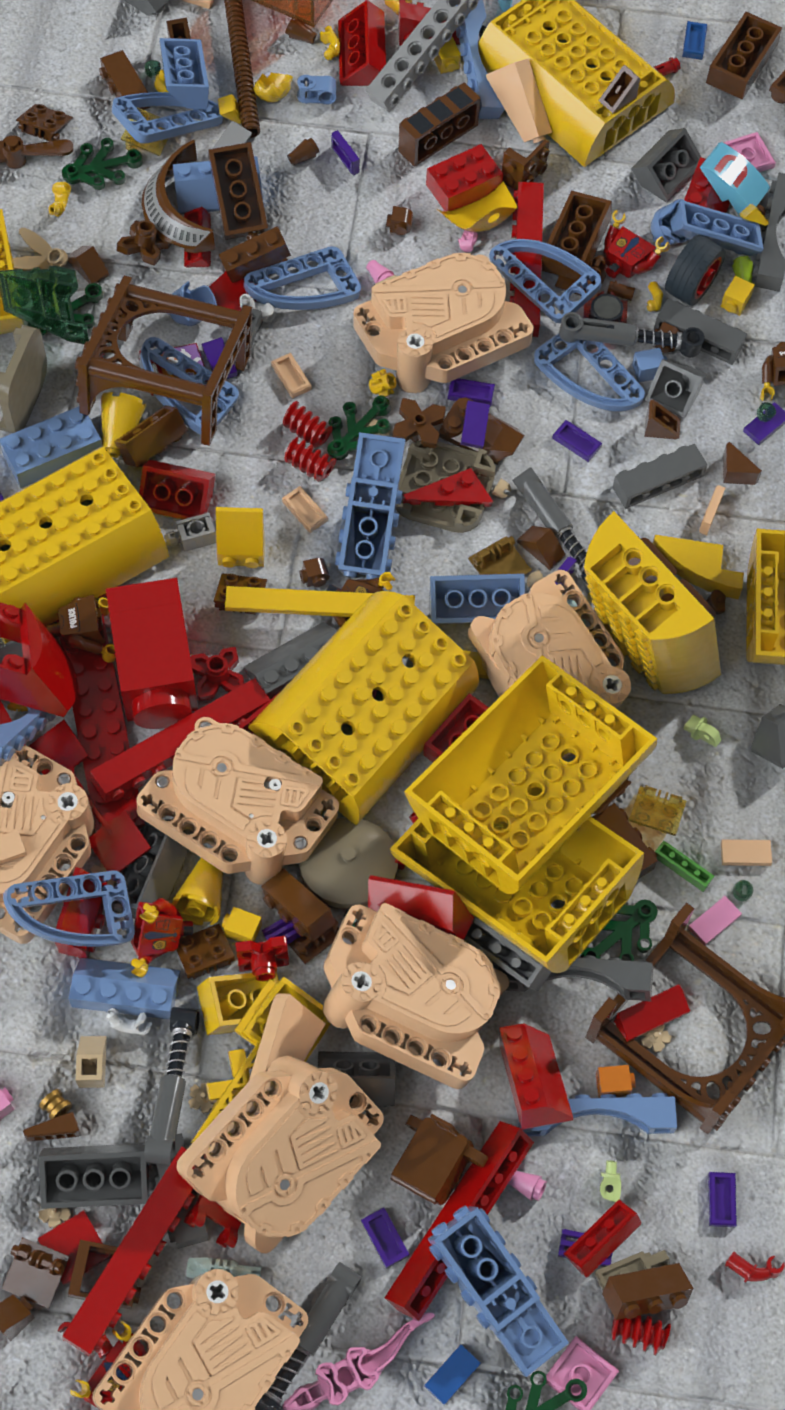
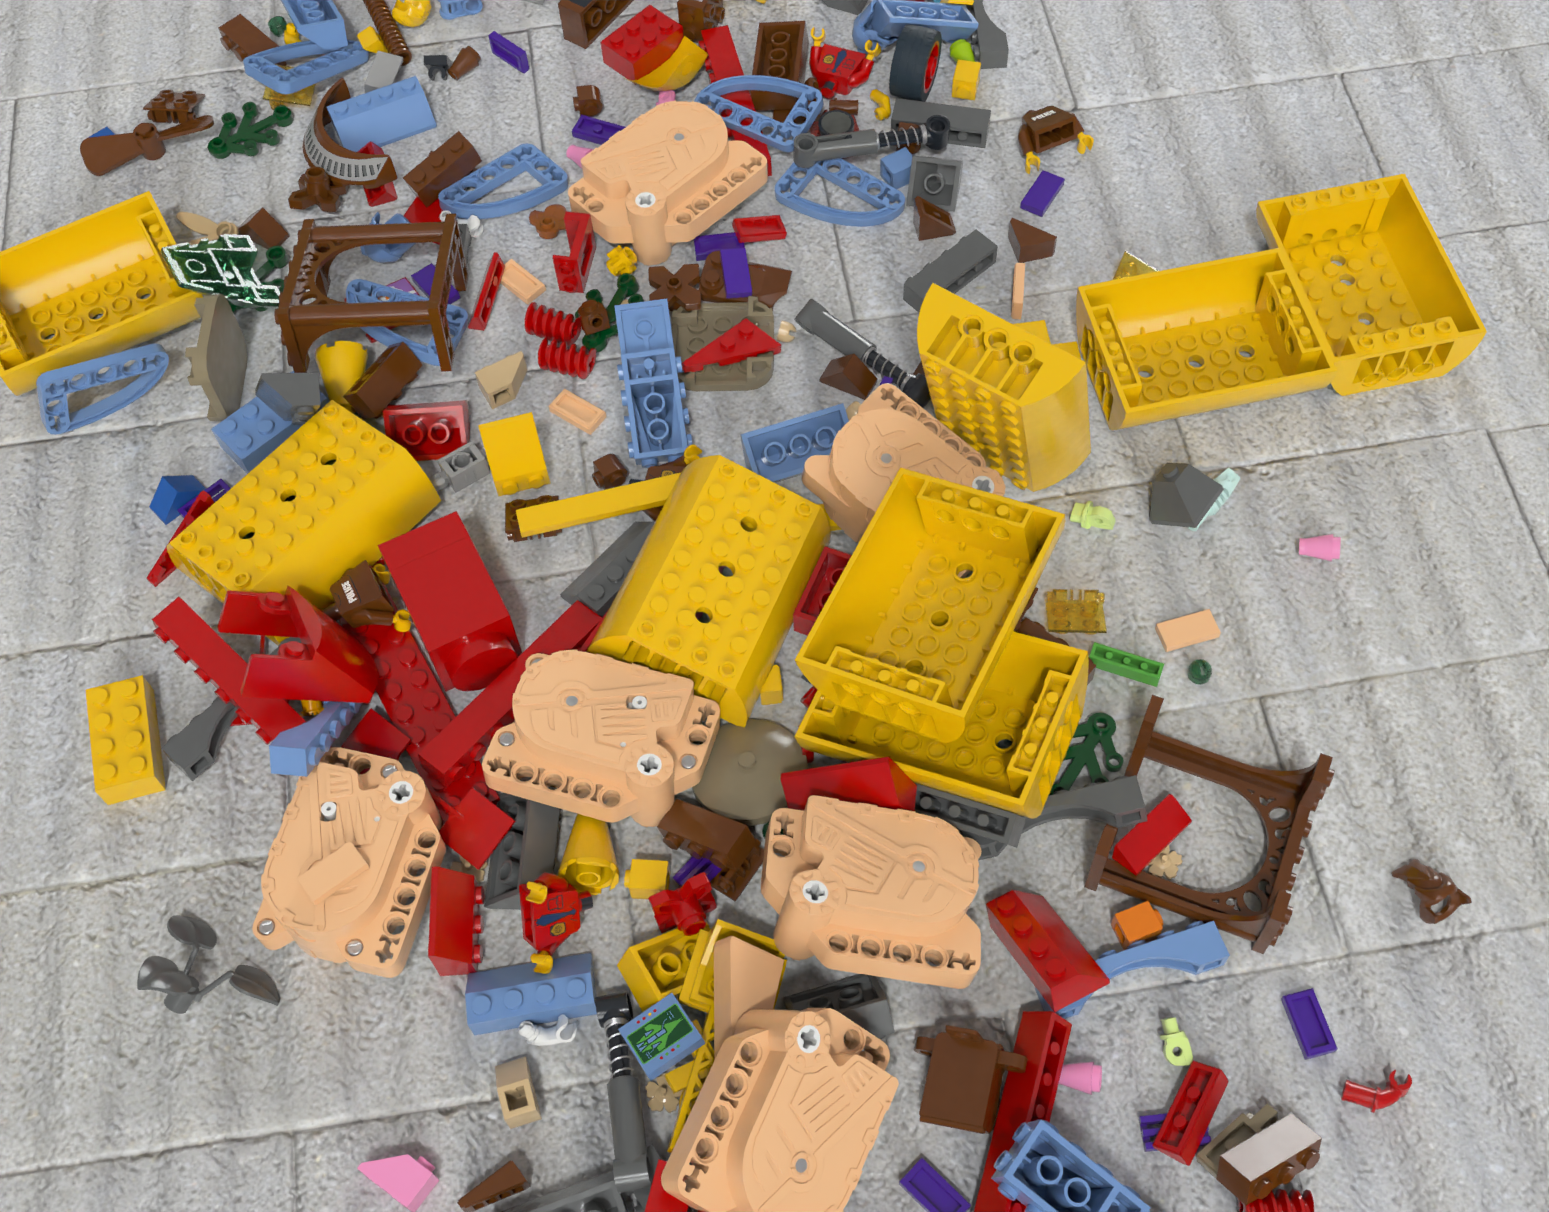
camera: 10 degrees left, 5 degrees down
(53, 896) = (479, 885): medium blue beam -> none
(55, 1104) = (488, 1157): pearl gold wheel -> none
(61, 192) = (213, 167): yellow piece -> none
(71, 436) = (290, 395): none -> dark grey slope
(204, 951) = (613, 921): reddish brown hinge -> none
(213, 1054) = (661, 1036): none -> tile
(216, 672) = (532, 607): red plant -> none
(237, 190) = (404, 110): reddish brown brick -> none
(250, 463) = (502, 380): none -> tan slope
(260, 380) = (487, 293): none -> red slope
(279, 146) = (437, 63): none -> black tile
(334, 326) = (548, 221): none -> dark orange plate
(339, 425) = (591, 312): none -> reddish brown plate
(354, 353) = (581, 240): none -> red panel
(389, 799) = (772, 689): none -> yellow slope
(402, 252) = (594, 130): none -> dark purple tile
(500, 559) = (806, 399): pearl gold hinge -> none
(509, 386) = (759, 228): none -> red plate
(577, 440) = (849, 263): dark purple tile -> none
(714, 920) = (1181, 712): bright pink tile -> none
(770, 412) = (1042, 180): hinge -> none

